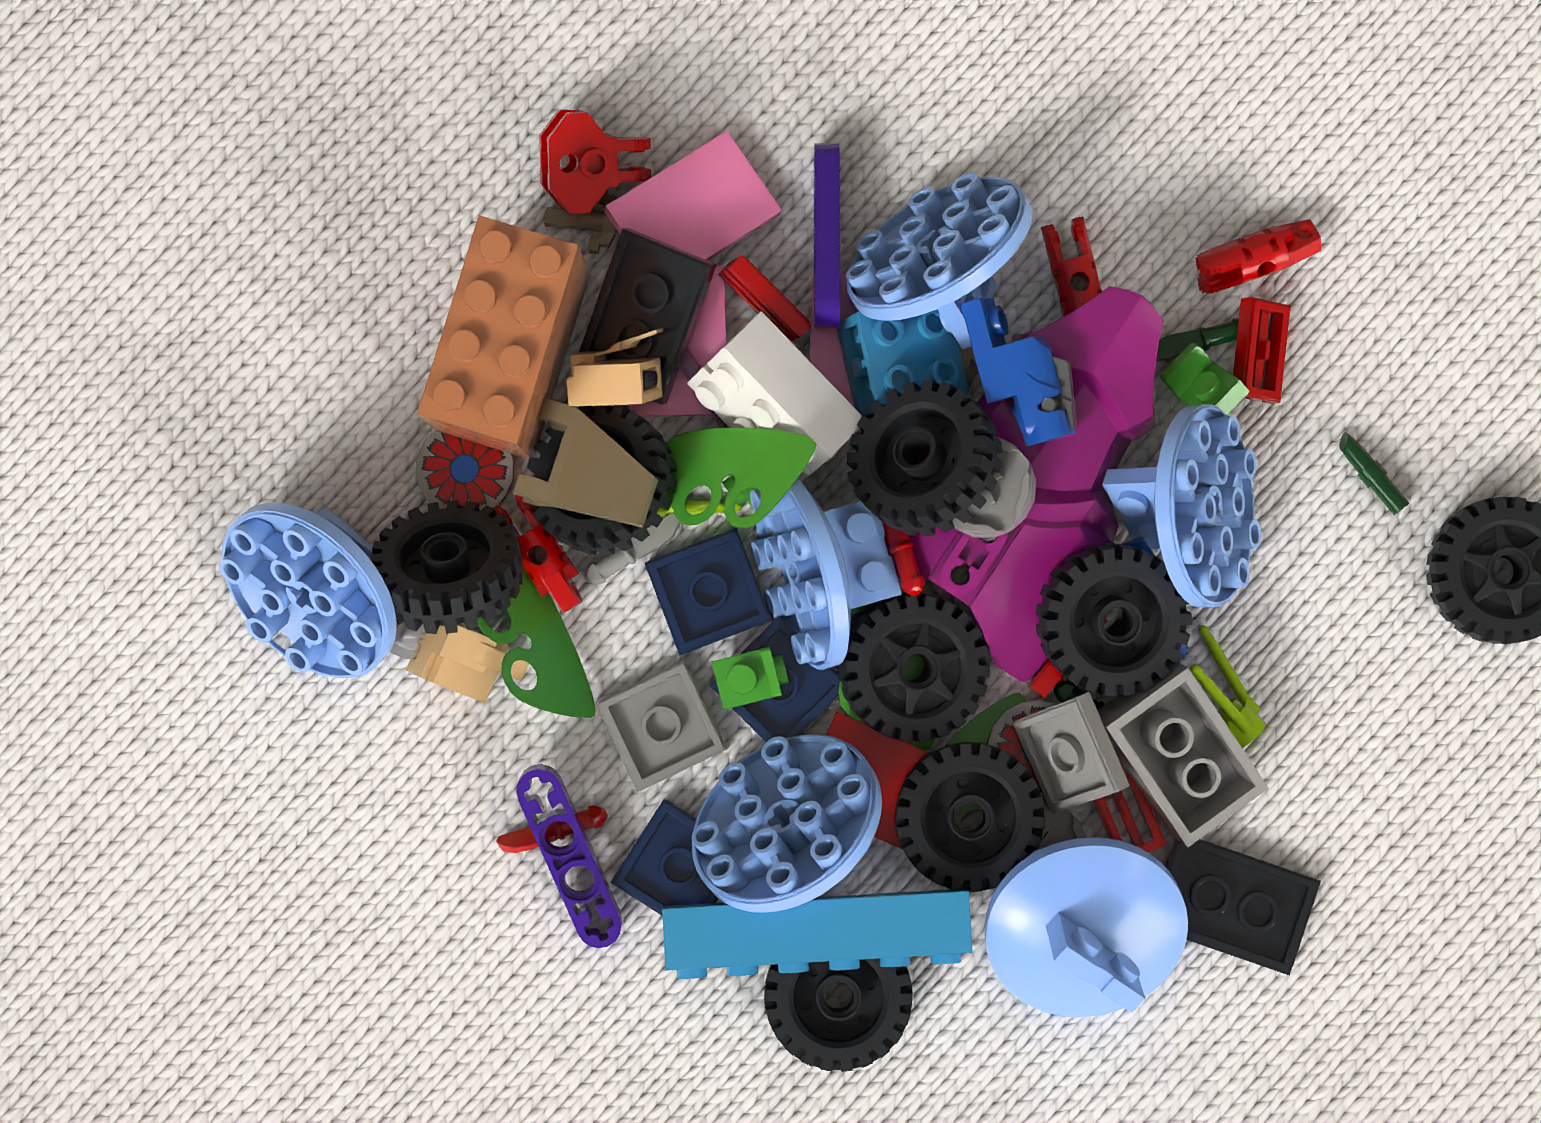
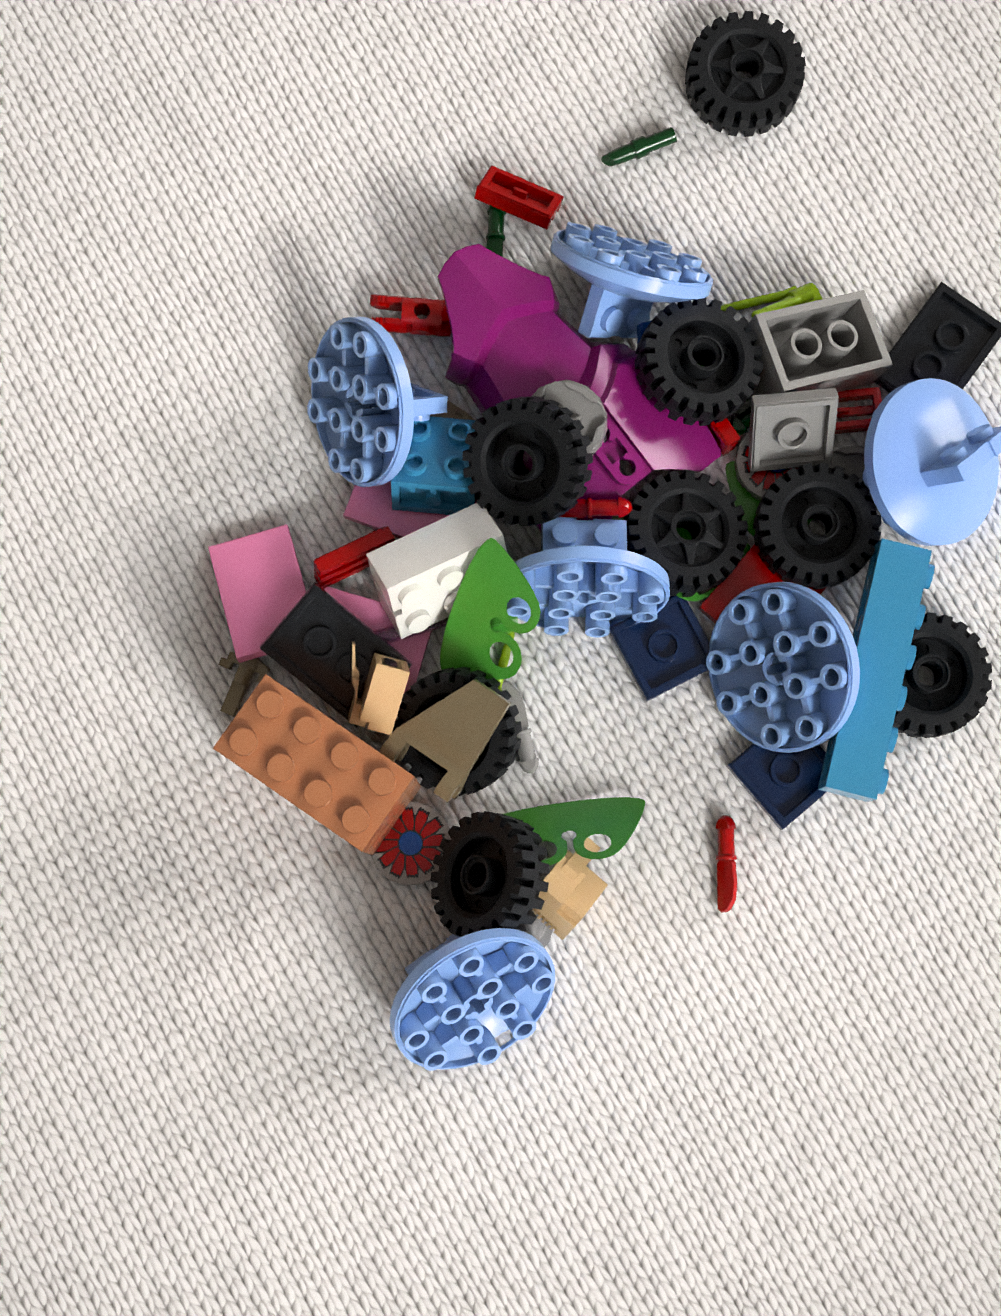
camera: 75 degrees left, 5 degrees down
(557, 571) = (517, 791): red hinge -> none
(562, 858) = (753, 854): dark purple beam -> none
(590, 159) = (193, 666): red hinge -> none
(661, 725) = (668, 749): light grey tile -> none
(708, 591) = (572, 678): dark blue tile -> none
(749, 677) = (653, 663): bright green bracket -> none
(826, 235) = (320, 493): dark purple beam -> none
(1023, 372) = (487, 358): blue plate -> none
(1201, 381) = (532, 243): bright green bracket -> none
(1256, 255) = (445, 176): red hinge -> none

